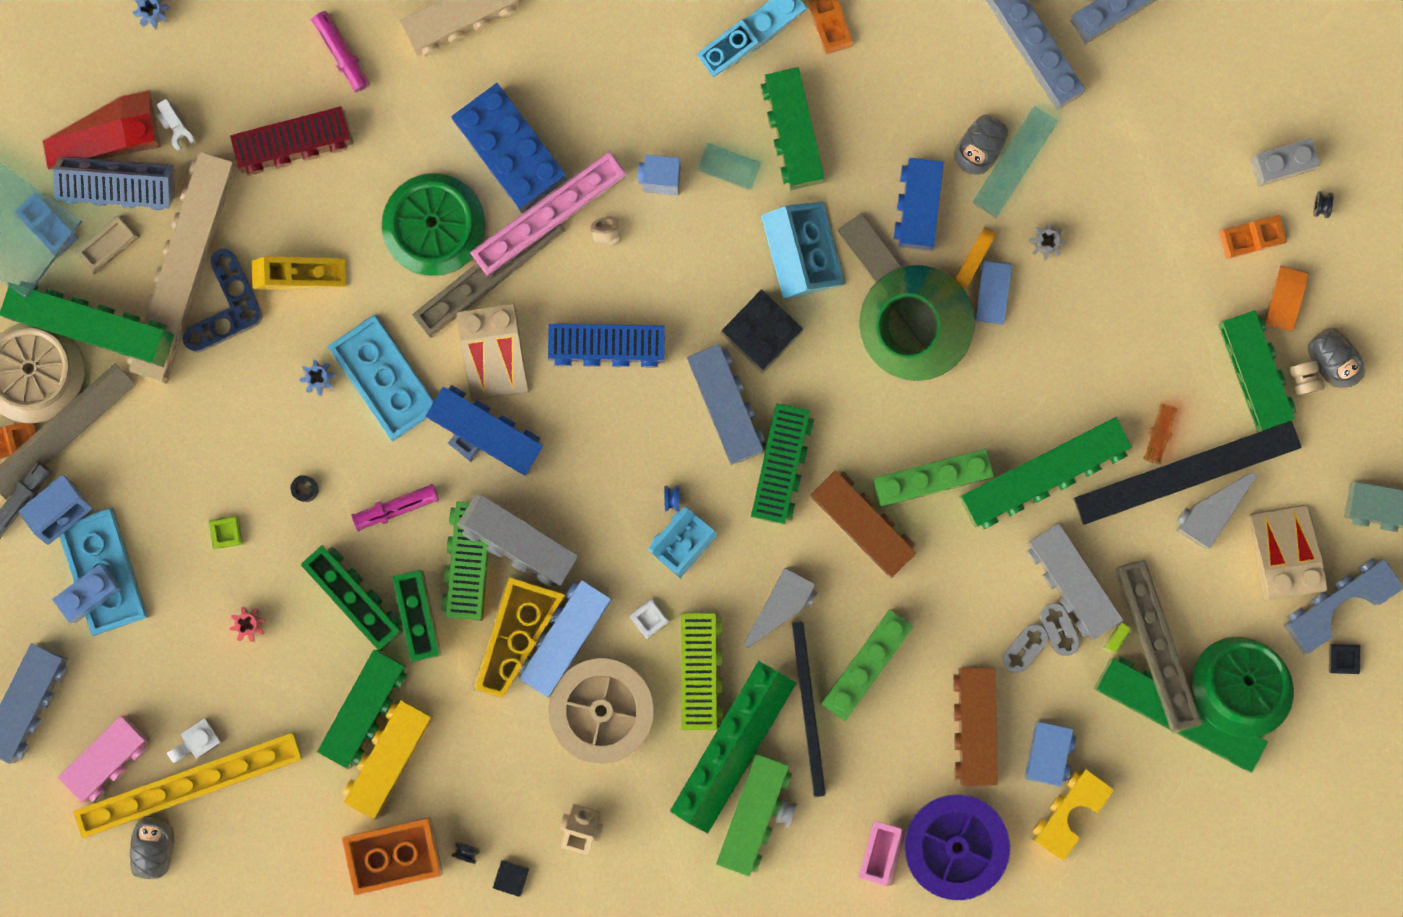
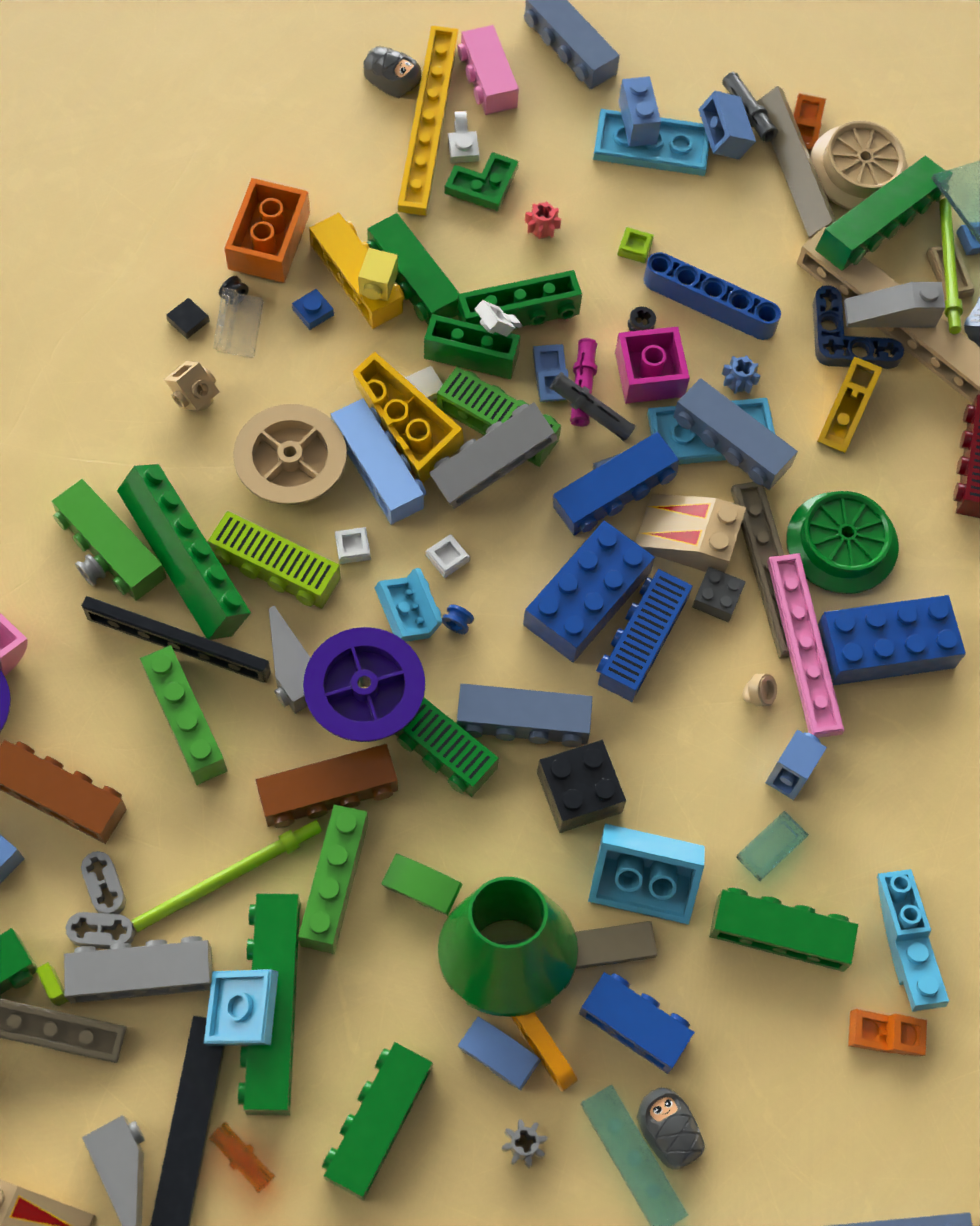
camera: 105 degrees right, 20 degrees down
(157, 224) = (953, 303): none -> lime bar
(192, 272) = (897, 306): none -> light grey slope
(238, 693) = (483, 188): none -> green plate
(243, 426) = (726, 295): none -> blue beam
(353, 455) = (651, 364): none -> dark pink brick
(386, 354) = (734, 434): none -> sand blue brick
(392, 600) = (495, 319): none -> white plate
(398, 727) = (378, 274): none -> light yellow brick
(400, 539) = (548, 363): none -> medium blue slope
(420, 516) = (582, 399): none -> dark grey pin
(444, 777) = (313, 309): none -> blue plate
(469, 640) = (426, 382): none -> white tile
(498, 826) = (238, 323): none -> clear panel
(537, 302) = (718, 594): none -> dark grey piece
(592, 405) = (588, 591): none -> blue brick
(617, 537) = (447, 556): none -> white tile
(782, 505) = (361, 660): none -> dark purple piece
(901, 412) = (422, 884): none -> bright green slope
(921, 530) = (287, 843): none -> lime bar
(1064, 489) = (241, 1007): none -> medium azure tile
(1086, 352) = (378, 1120): none -> green brick

